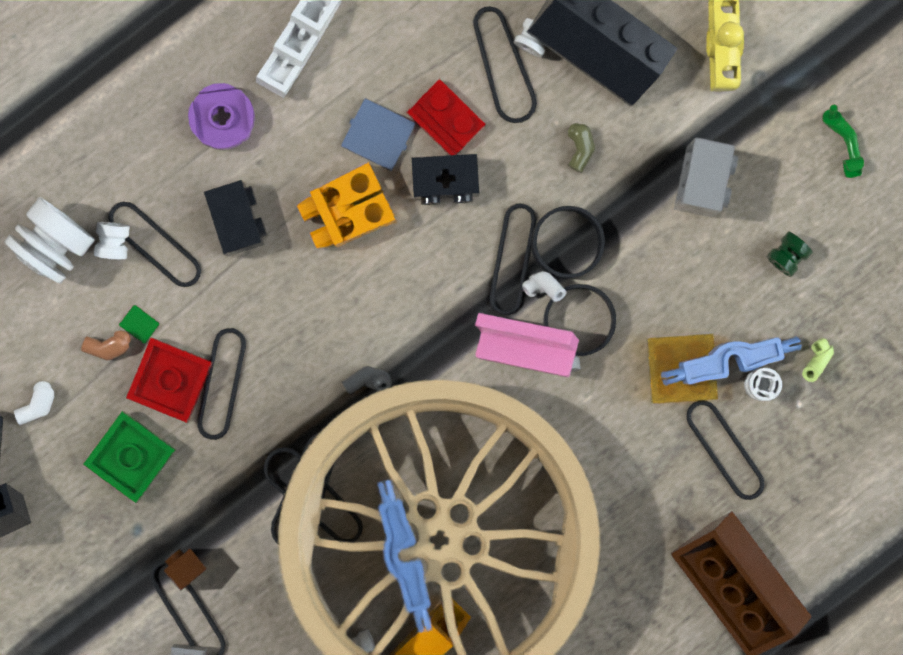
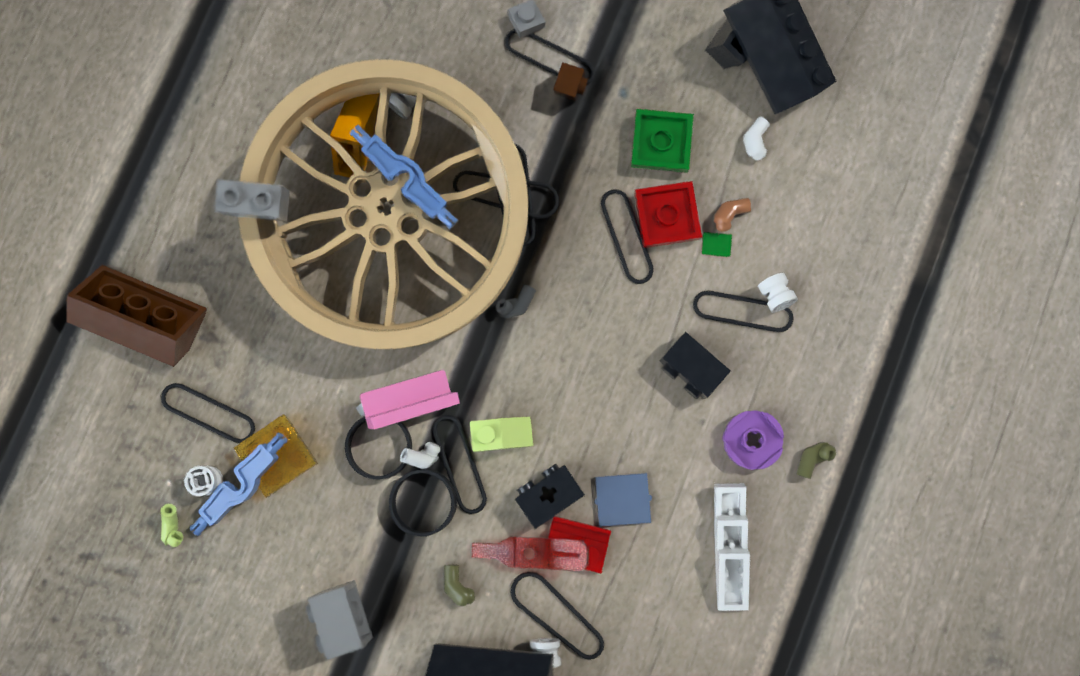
camera: 155 degrees right, 5 degrees down
(49, 241) = (825, 260): white wheel -> none
(174, 69) = (813, 455): none -> olive arm
(336, 206) = (618, 419): light orange hips -> none
(456, 262) = (501, 433): none -> yellowish green slope
(477, 125) = (548, 553): none -> clear red piece
(562, 611) = (252, 200): none -> light grey brick
(789, 254) = (239, 598): dark green wheel -> none

